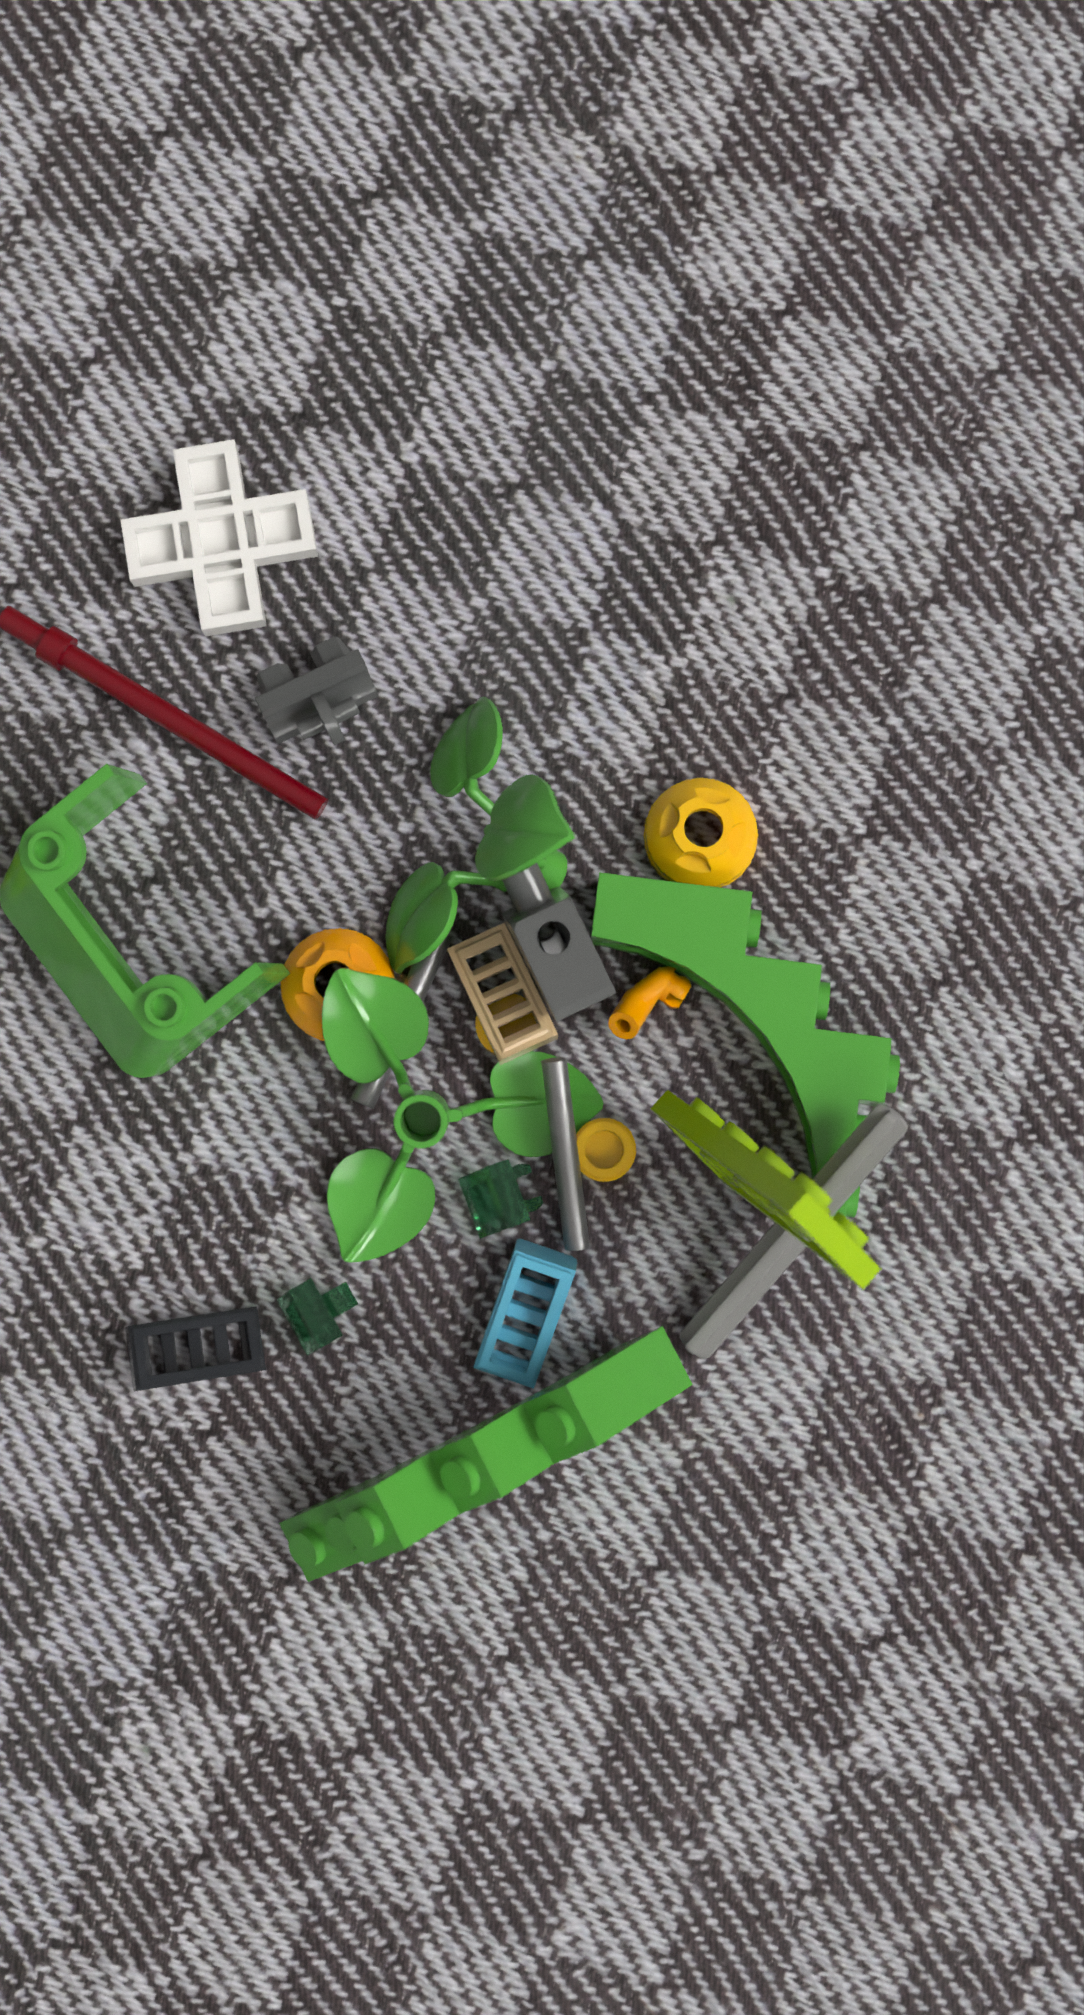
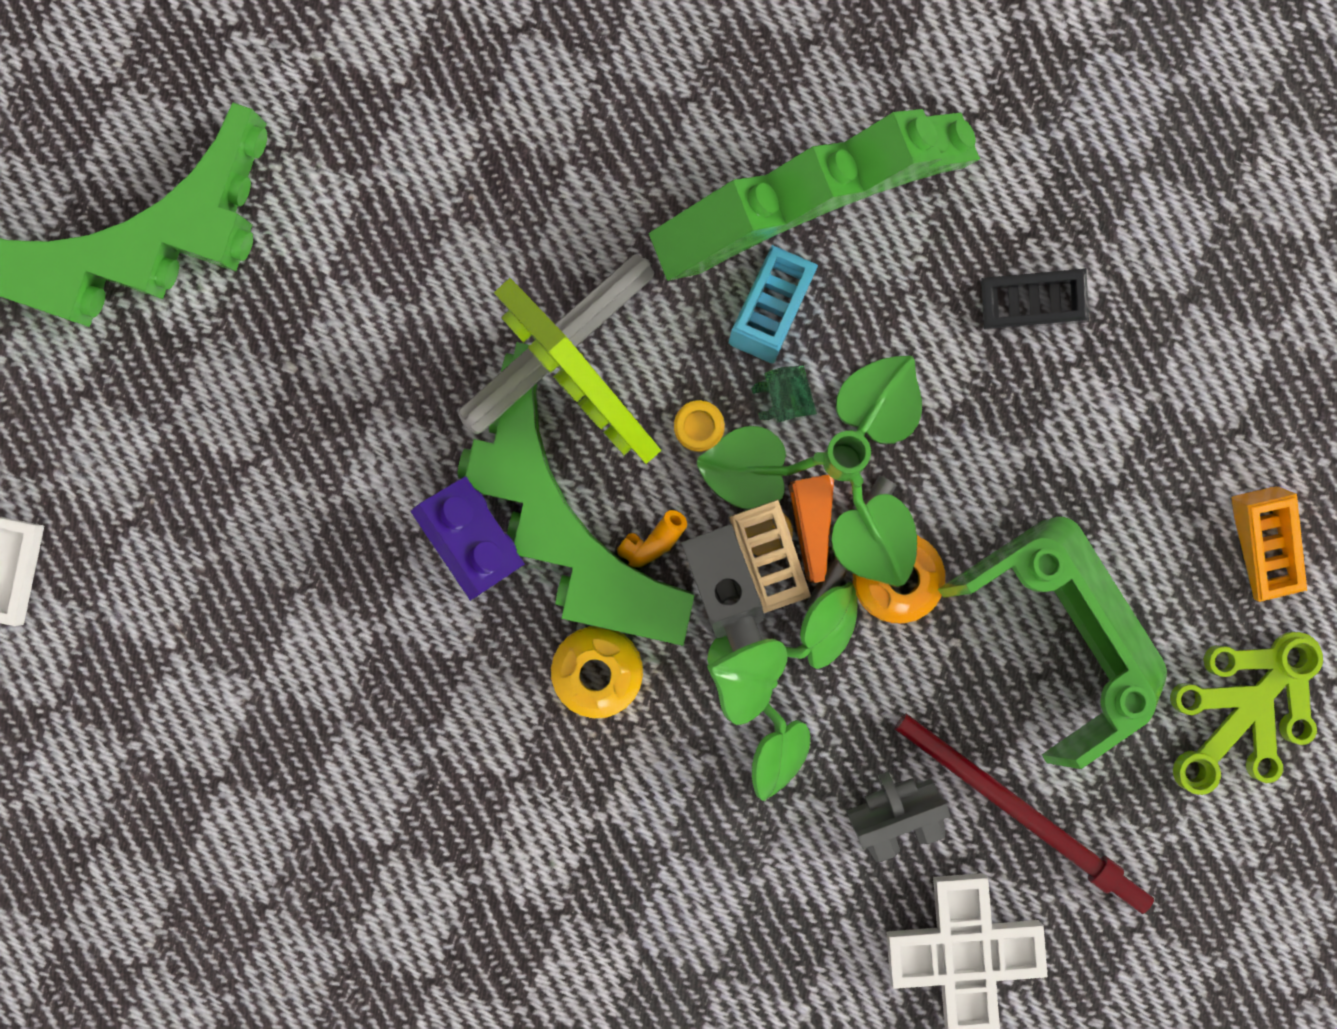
camera: 175 degrees left, 5 degrees up
(314, 1314) = (940, 317): clear green tile -> none
(453, 1056) = (812, 514): none -> orange slope
(565, 1153) = (730, 424): flat silver bar -> none
(878, 975) = (467, 537): none -> dark purple bracket

